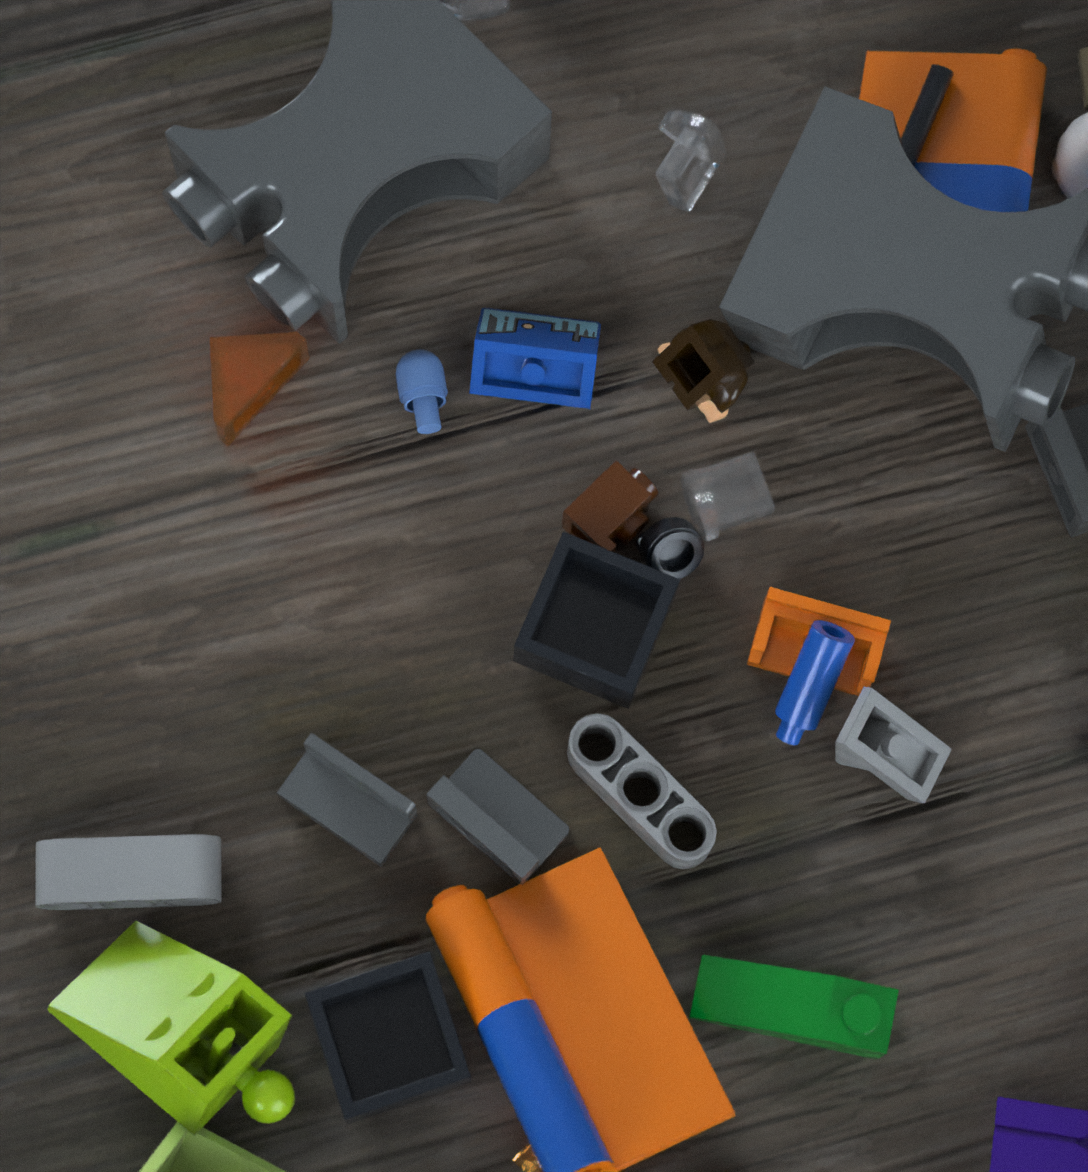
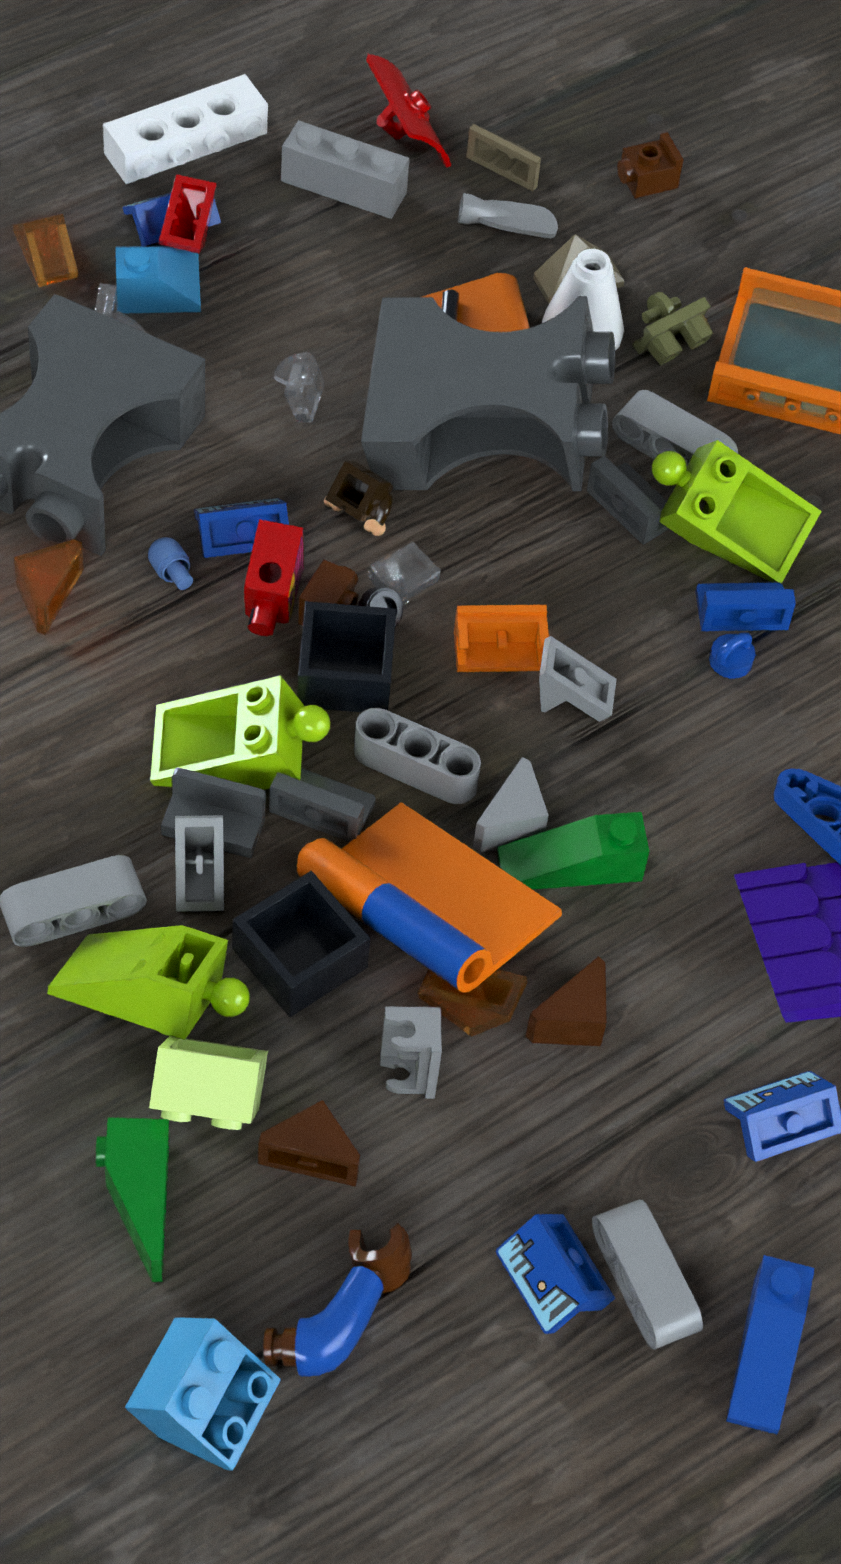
camera: 20 degrees left, 20 degrees down
(302, 875) = (199, 863): none -> light grey slope
(412, 692) = (236, 734): none -> lime slope
(548, 443) = (273, 576): none -> red torso
(741, 918) = (514, 811): none -> light grey slope
(812, 680) = (507, 657): blue cylinder -> none

